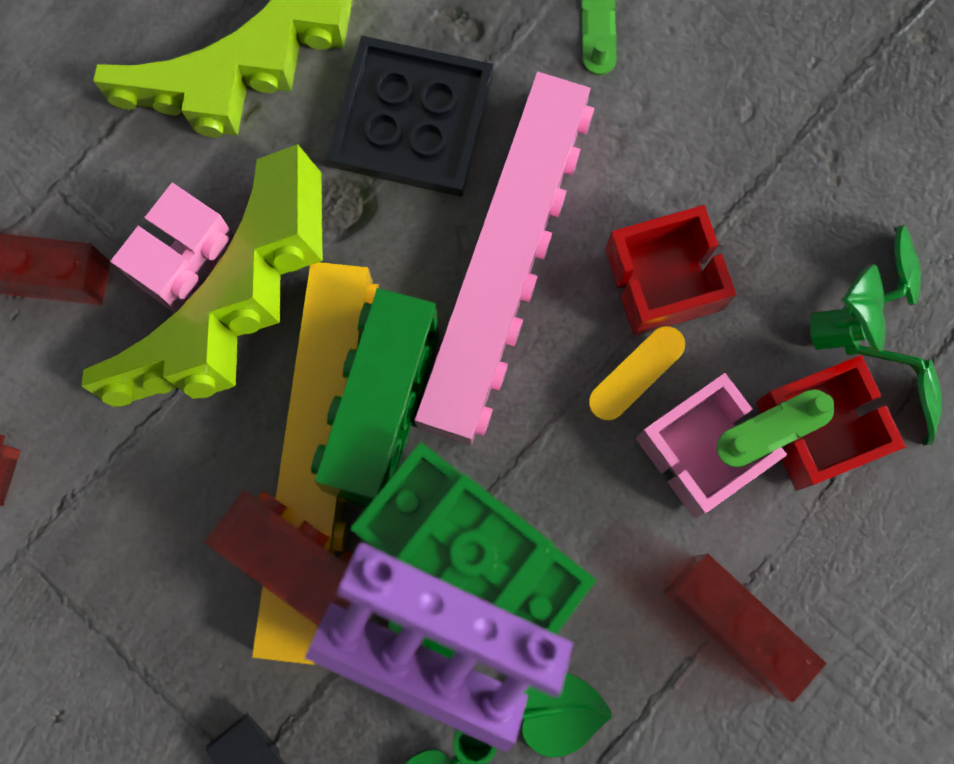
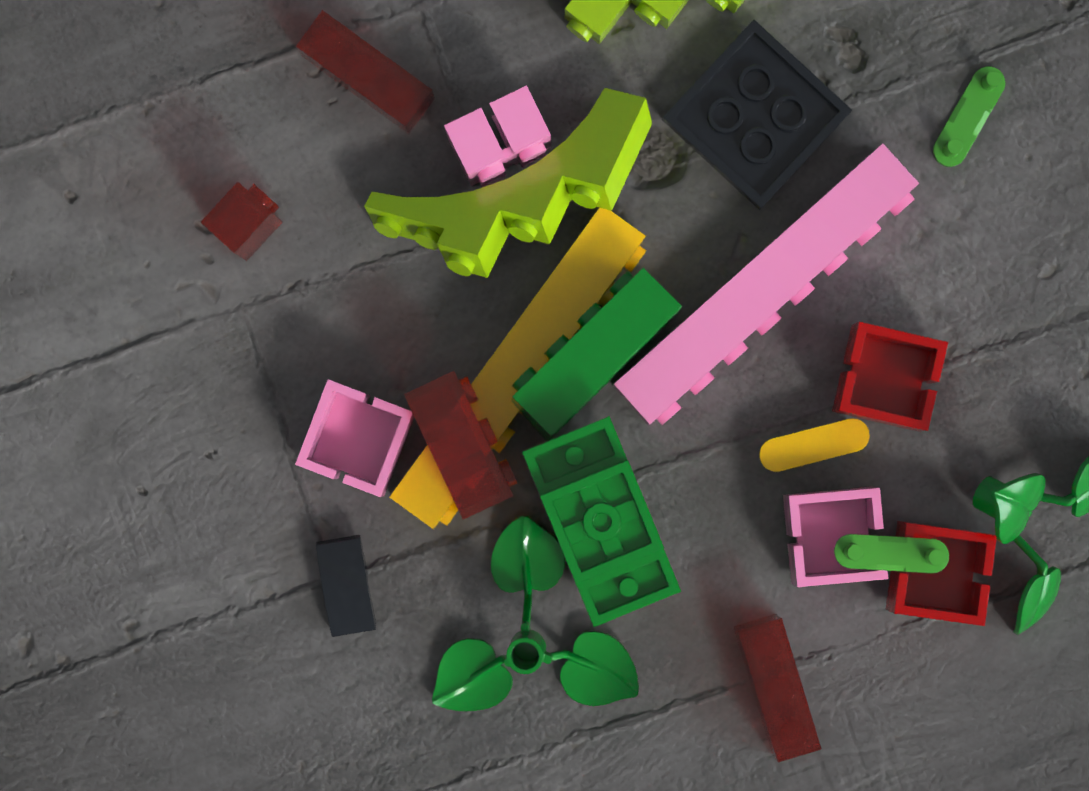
camera: 30 degrees right, 10 degrees up
(187, 617) = (355, 438): none -> bright pink piece
(423, 678) = (514, 588): medium lavender fence -> none

